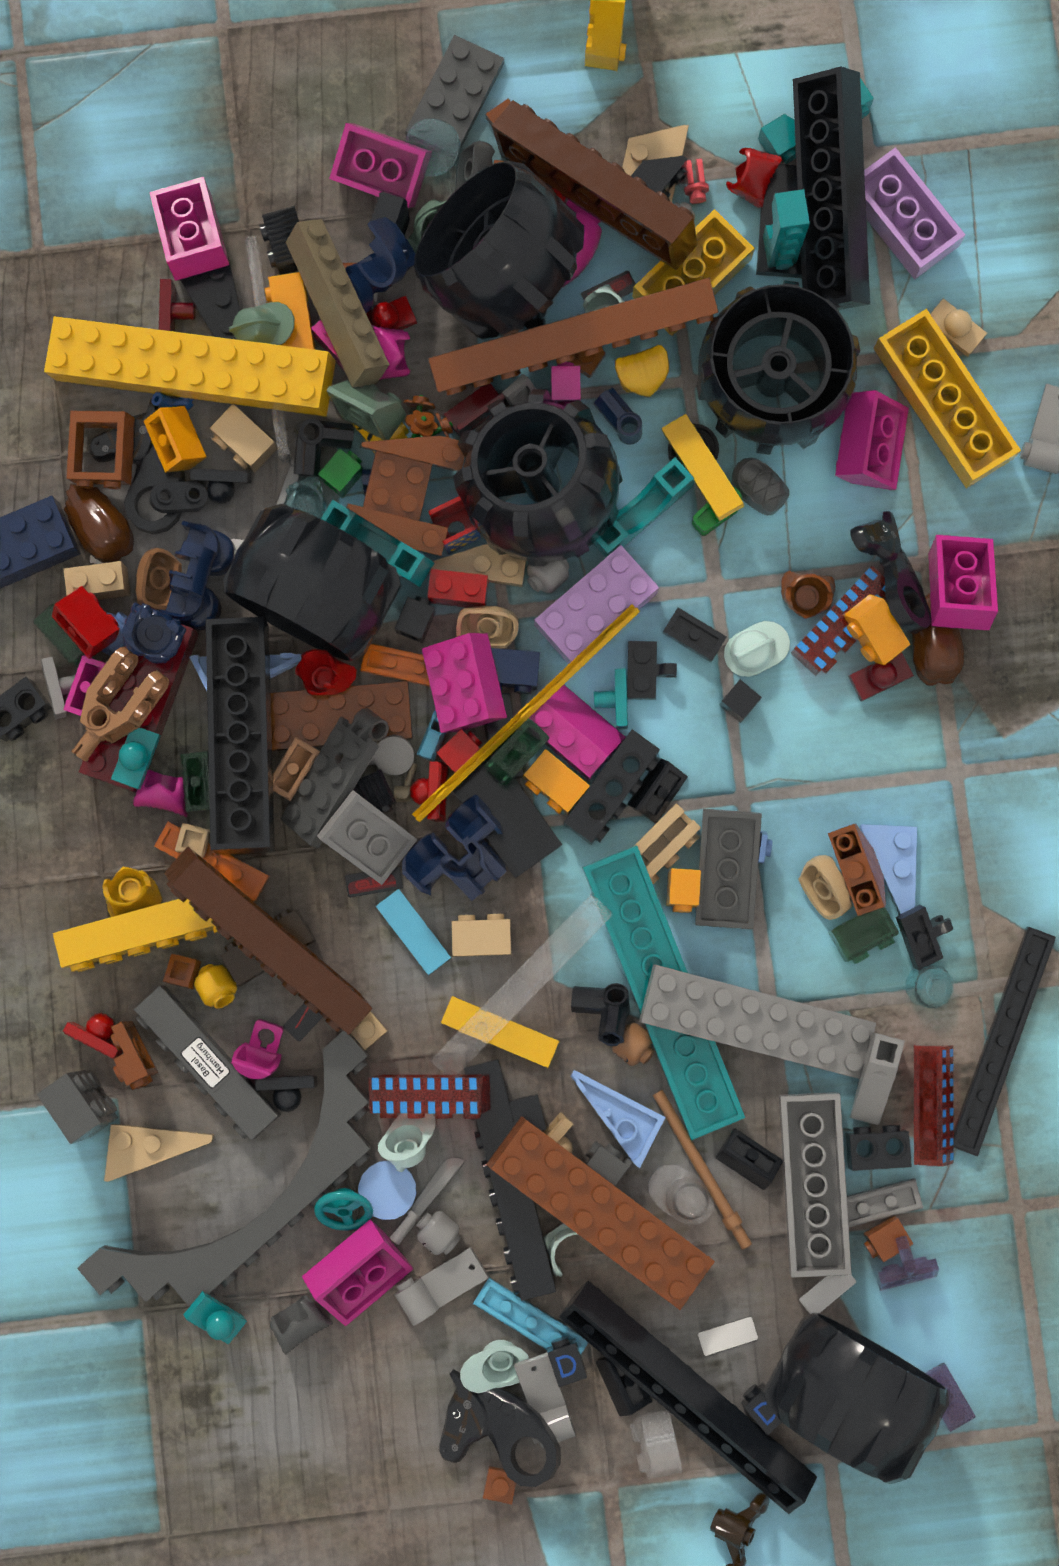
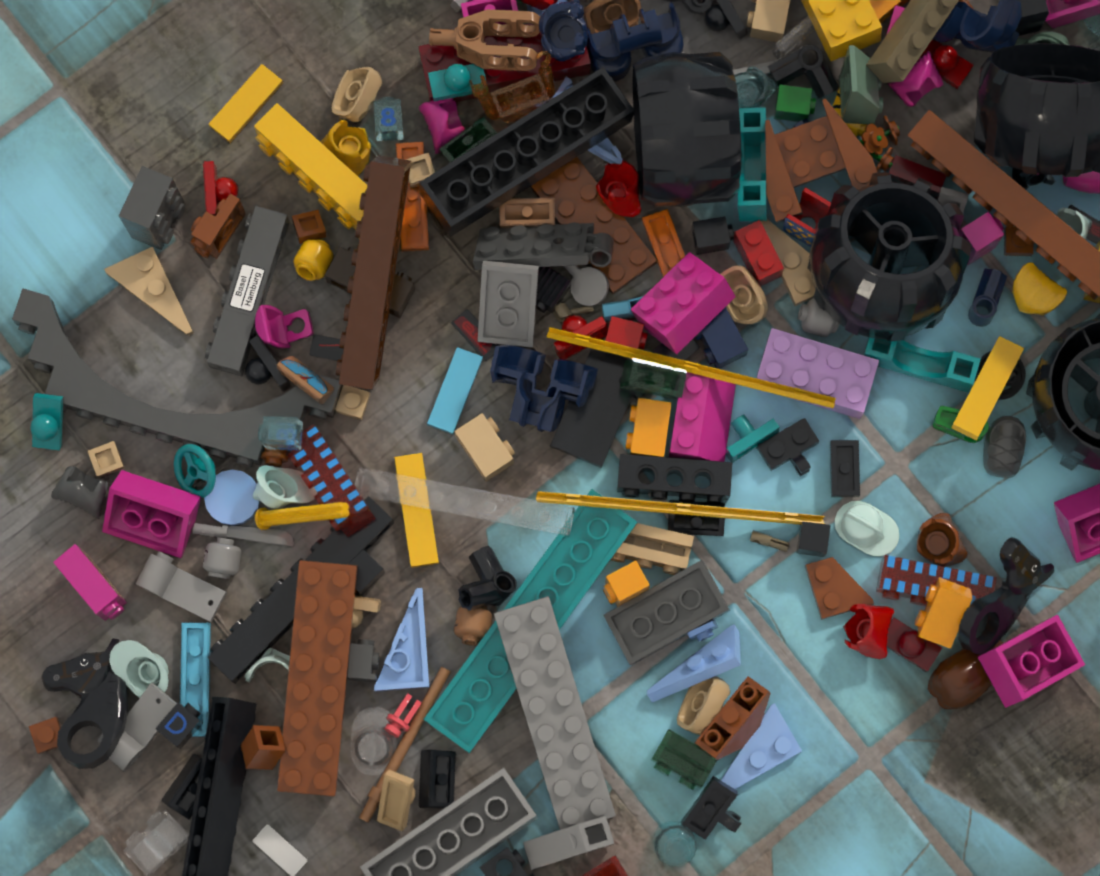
camera: 55 degrees right, 5 degrees down
(30, 959) = (245, 103): none -> yellow tile
(85, 854) = (356, 93): none -> tan piece
(127, 839) = (388, 119): none -> clear light blue brick
(186, 711) = (518, 98): none -> clear orange torso
(282, 1284) = (106, 459): none -> tan plate
(323, 1060) = (305, 379): none -> medium nougat slope
(360, 1113) = (281, 433): none -> clear light blue brick
(373, 1129) = (274, 457): none -> dark orange plate
(389, 1367) = (90, 583): none -> dark pink brick
(425, 1171) = (266, 518): none -> yellow axle
(634, 1300) = (263, 747): none -> dark orange brick
(645, 802) = (676, 508): none -> yellow piece
(682, 1166) = (398, 724): none -> coral arm
(716, 740) = (768, 540): none -> dark tan pin
(749, 1208) = (396, 800): none -> tan tile
(793, 709) = (834, 588): none -> dark orange wing
(793, 856) = (711, 660): none -> light blue wing
(848, 703) = (869, 630): none -> red hair

